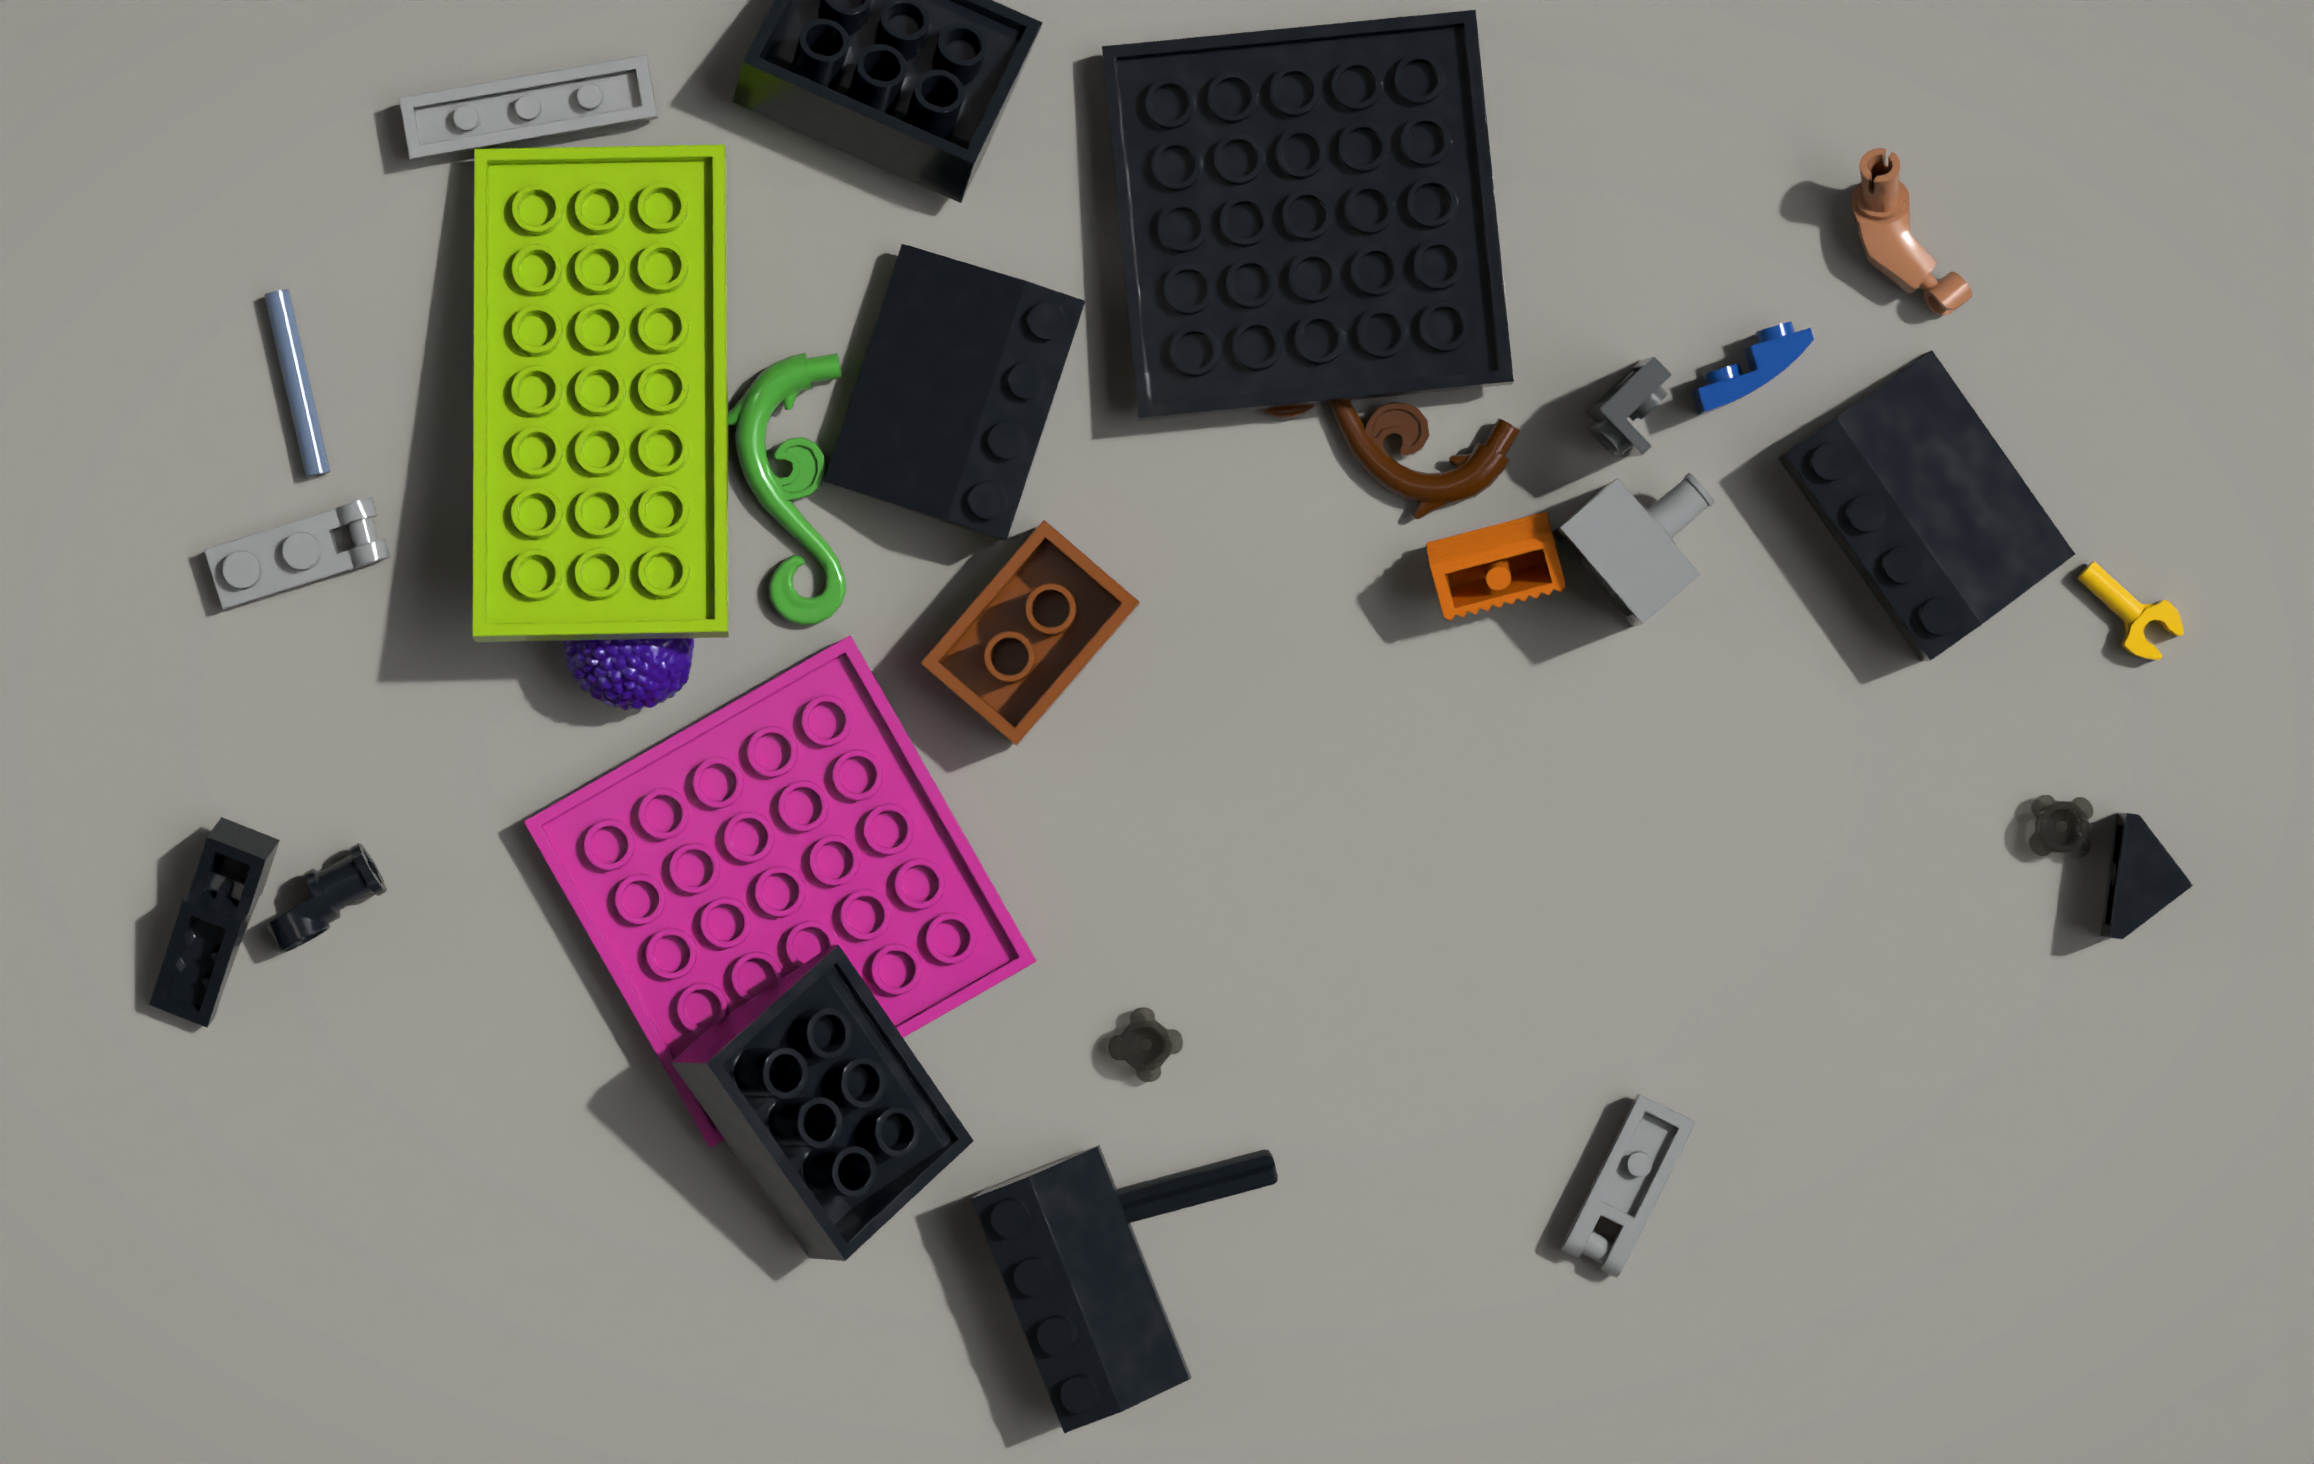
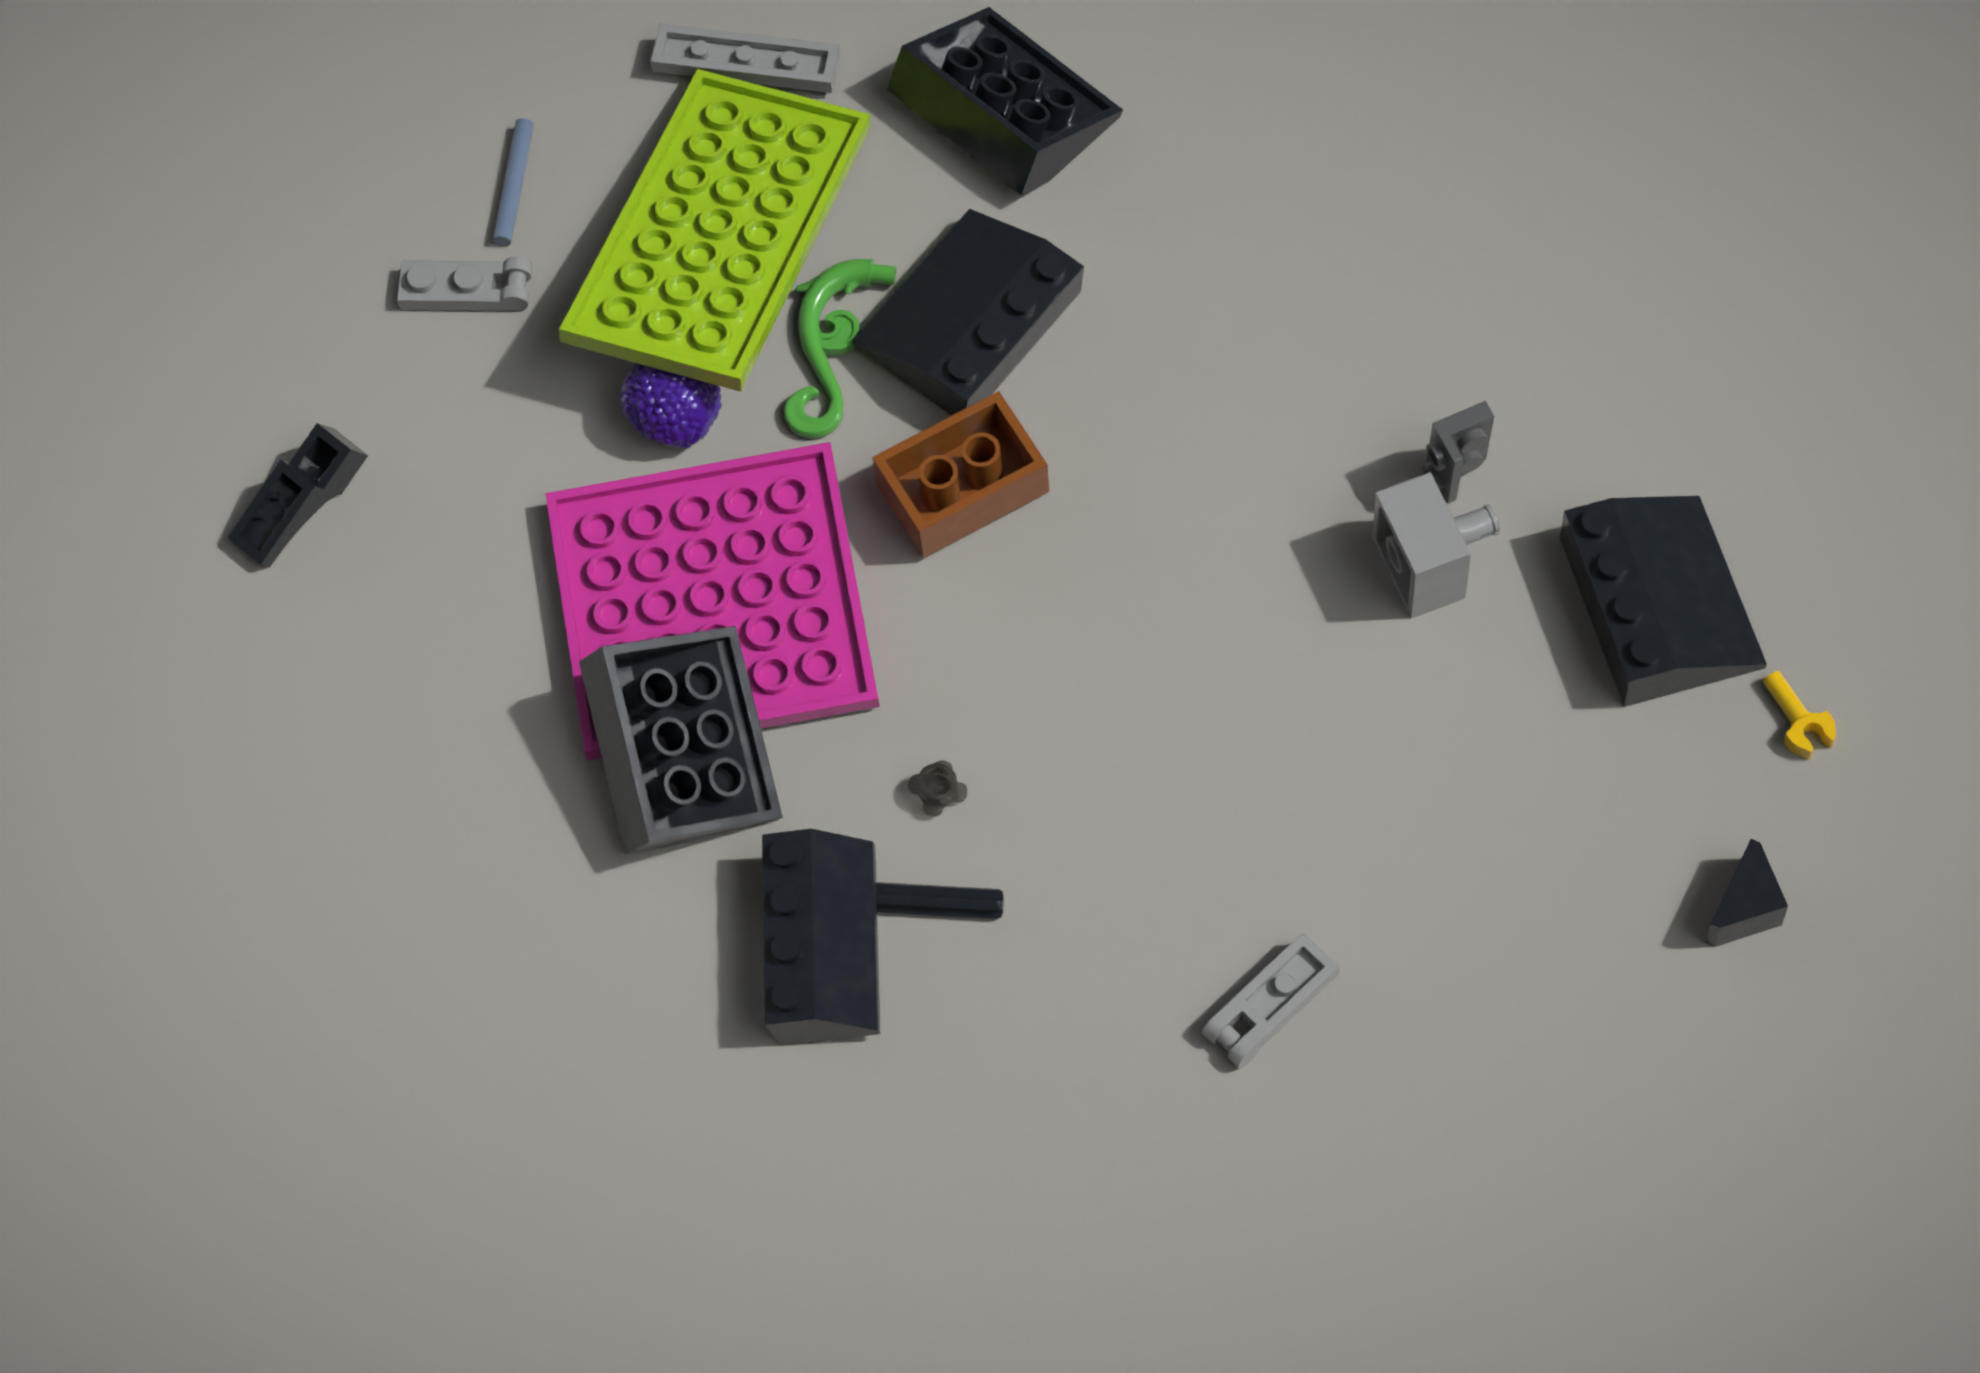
camera: 25 degrees right, 25 degrees down
(331, 892) = (361, 513): black connector -> none
(1307, 215) = (1265, 273): black plate -> none
(1431, 490) = (1280, 424): reddish brown plant -> none
(1495, 565) = (1321, 529): orange brick -> none
(1773, 354) = (1577, 460): blue slope -> none
(1883, 224) = (1688, 402): nougat arm -> none
(2073, 839) = (1702, 836): clear smoke plate -> none

